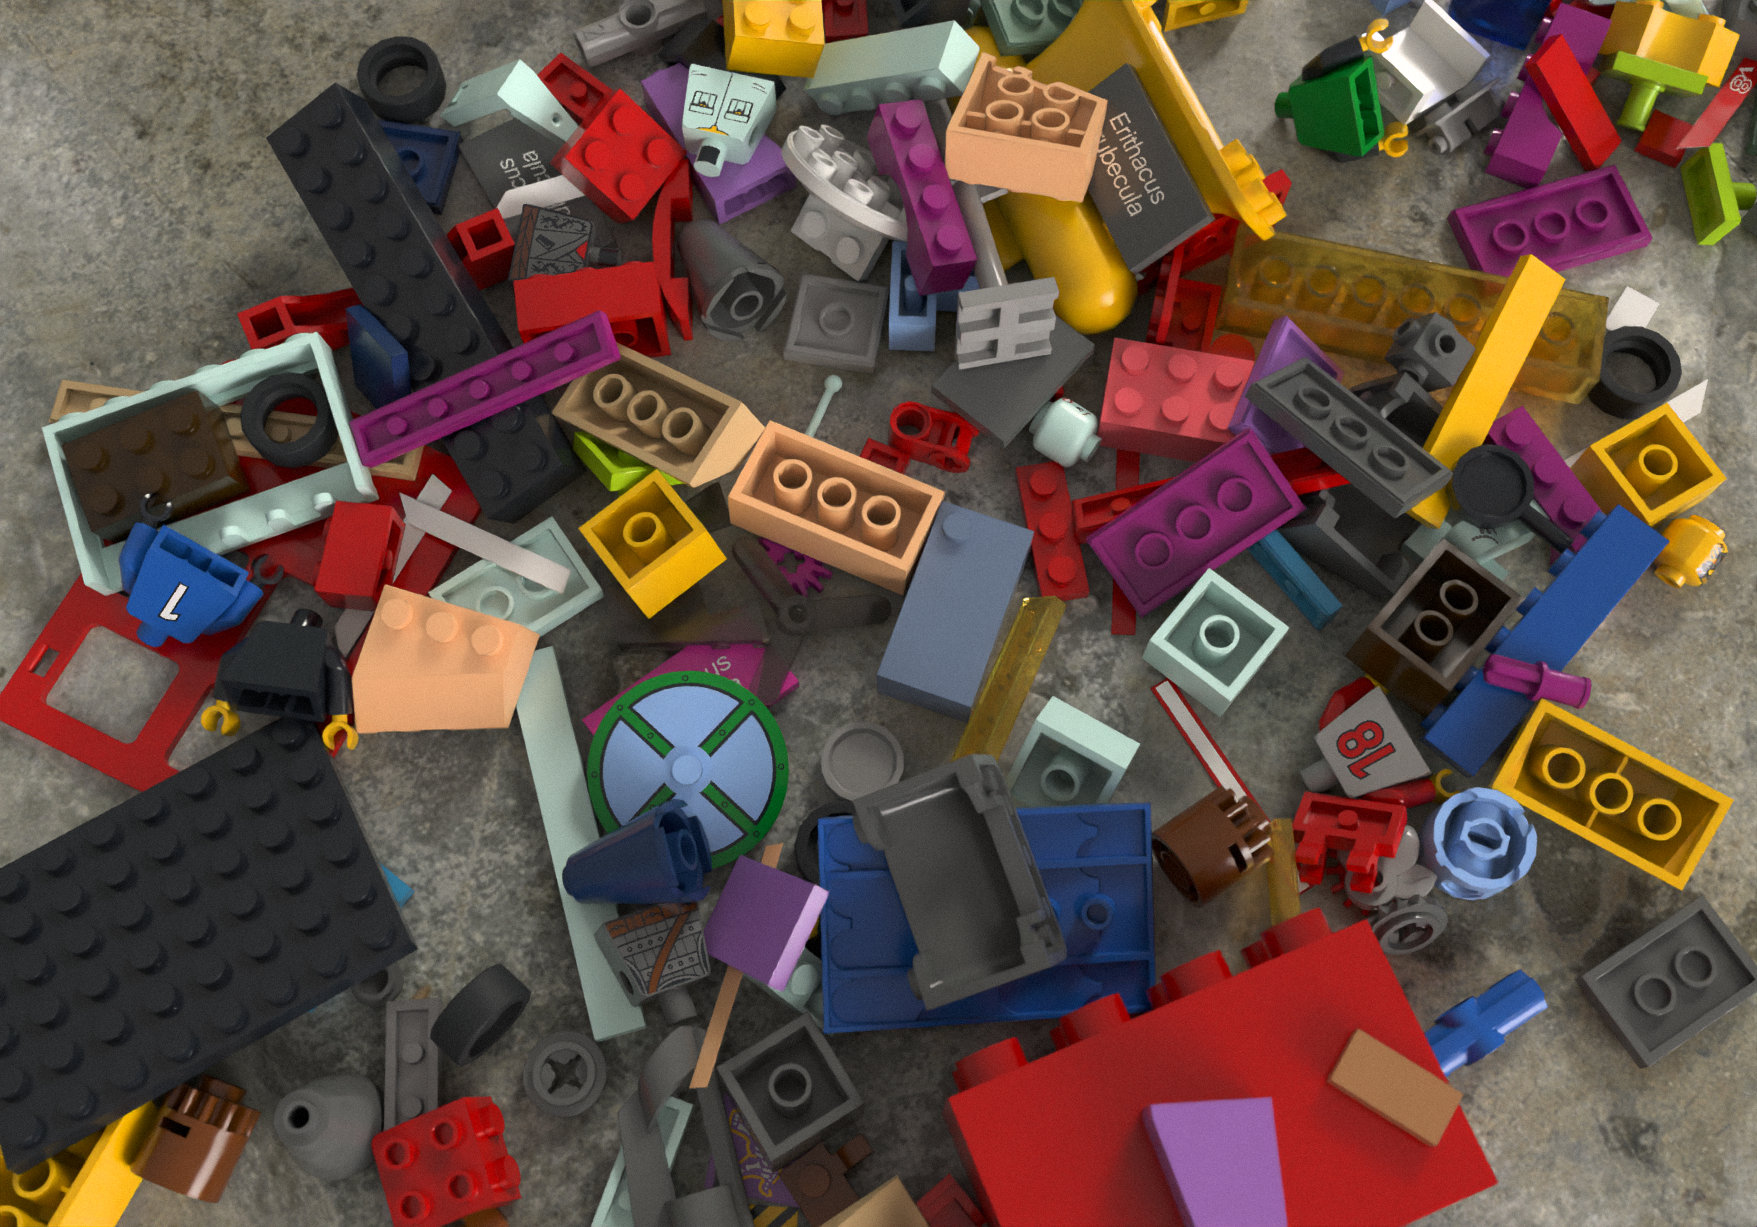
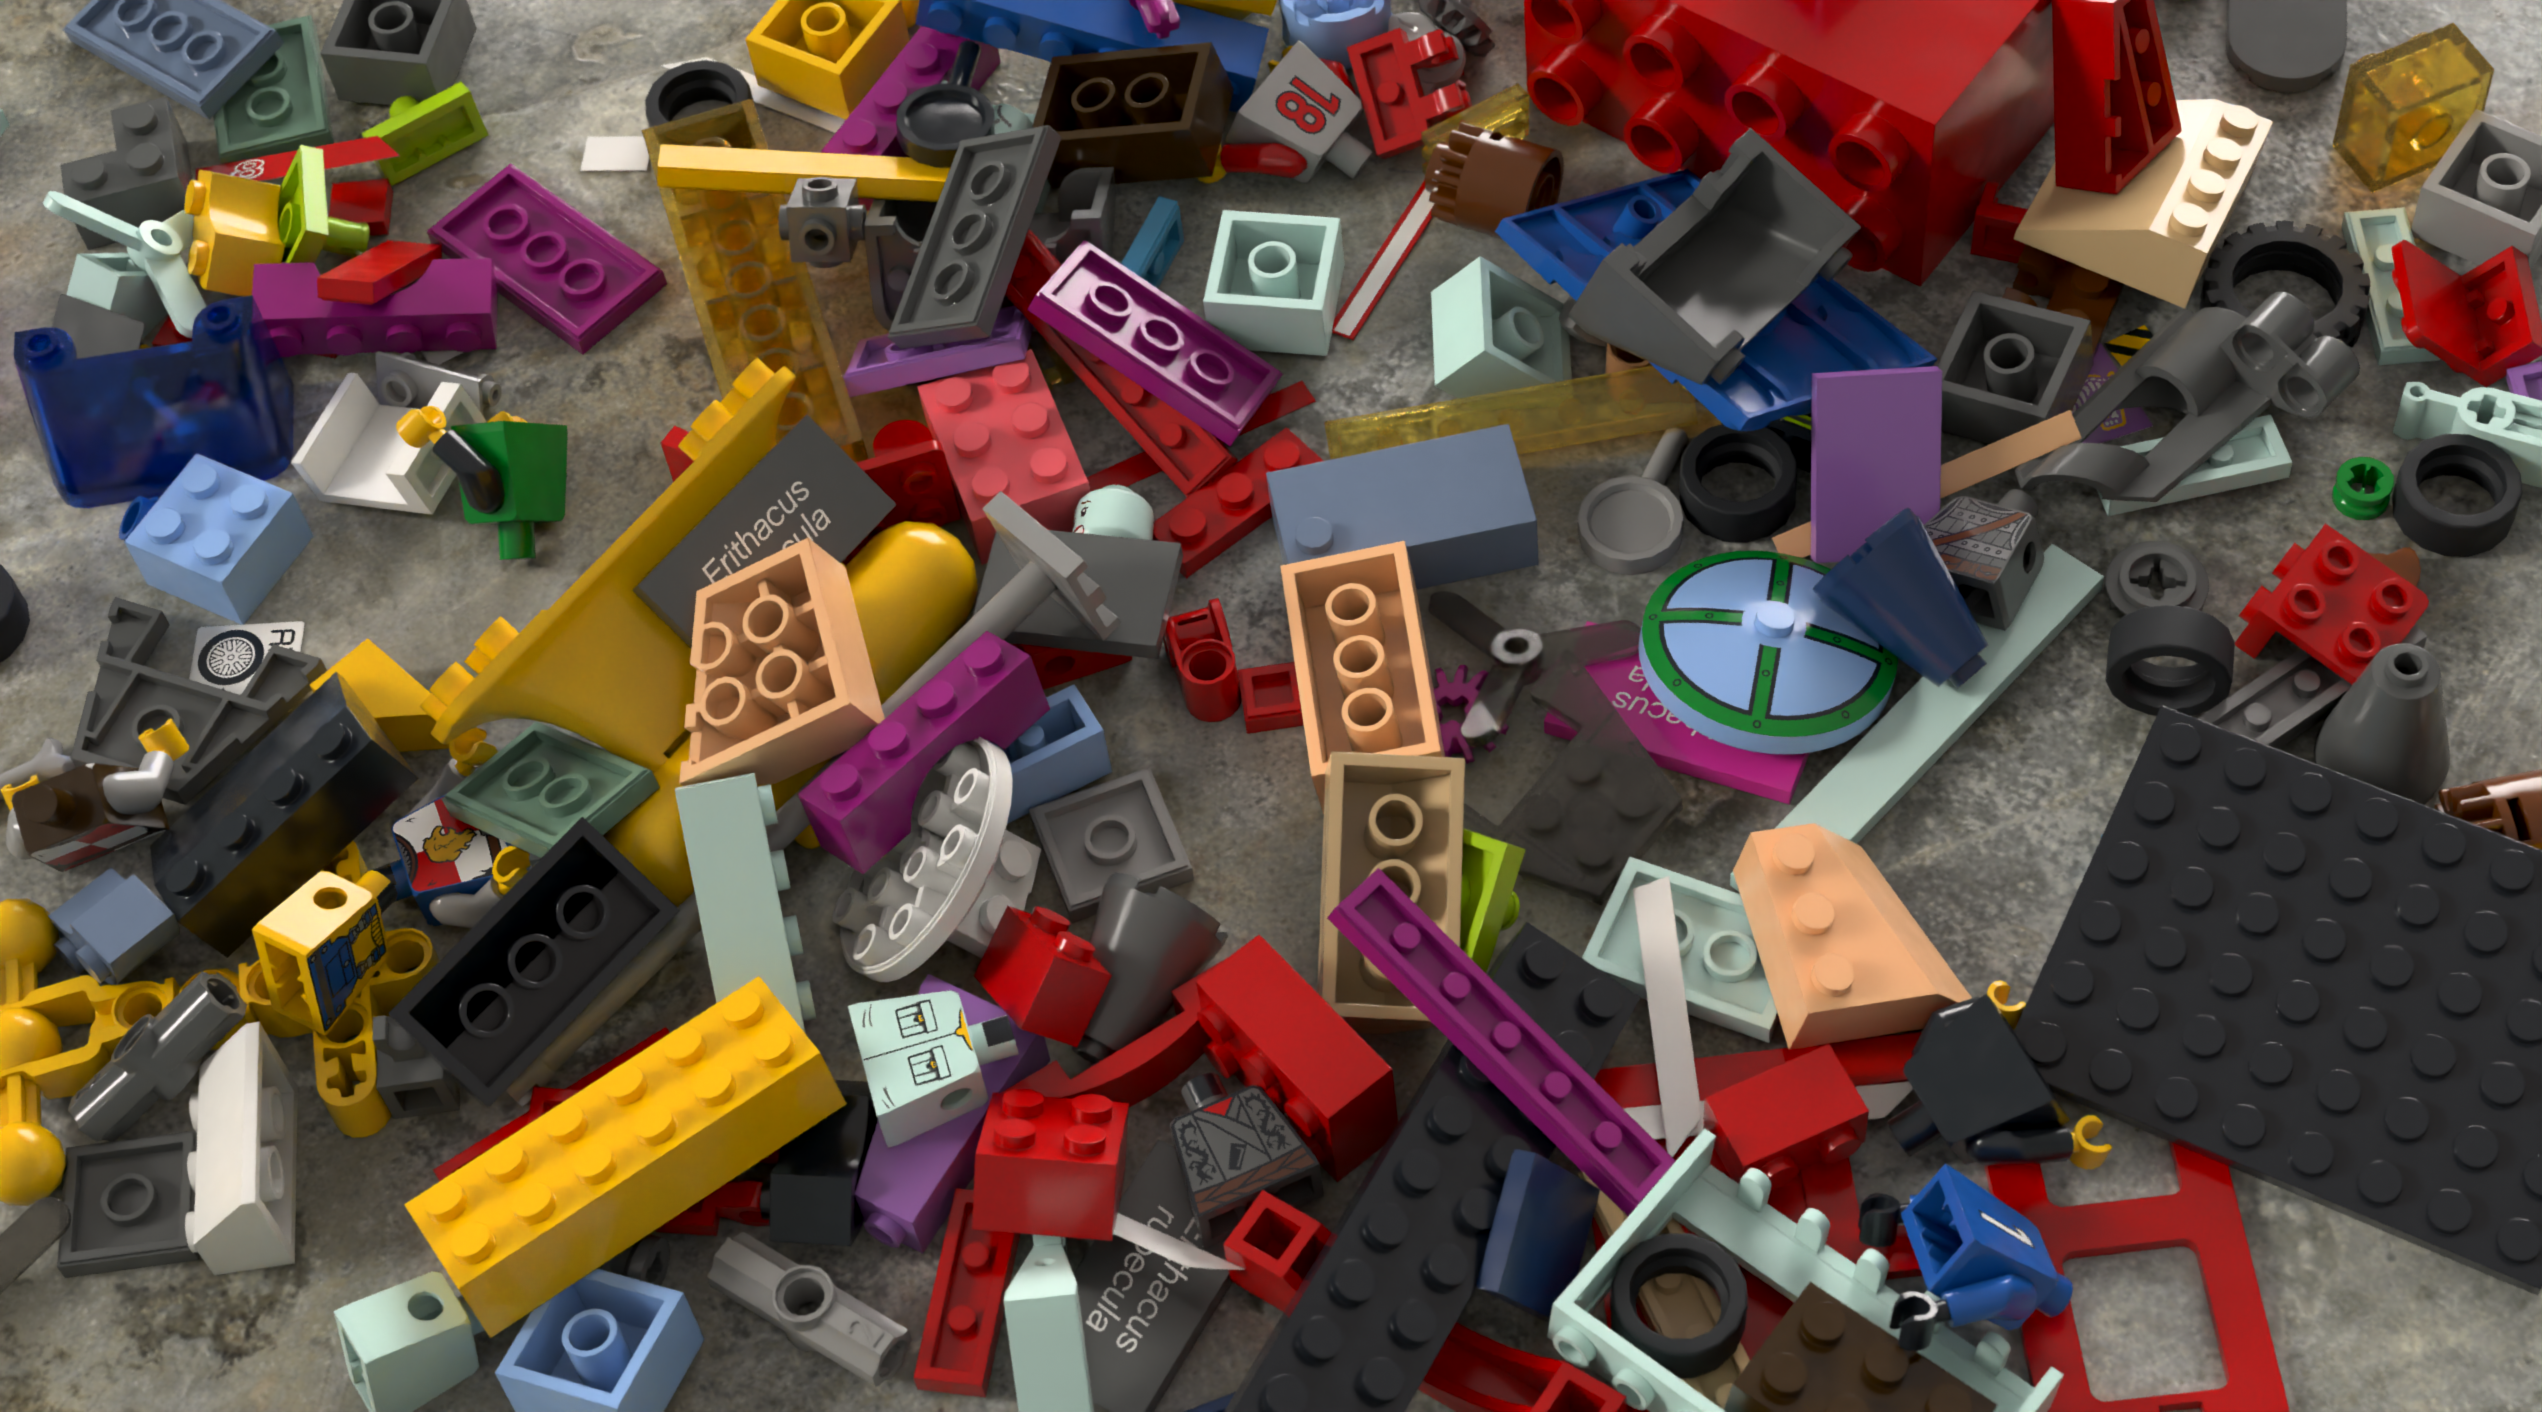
camera: 115 degrees left, 15 degrees down
(652, 543) = (1552, 786): yellow brick -> none
(744, 212) = (1043, 974): none -> red brick
(832, 384) = (1300, 789): light aqua hinge -> none

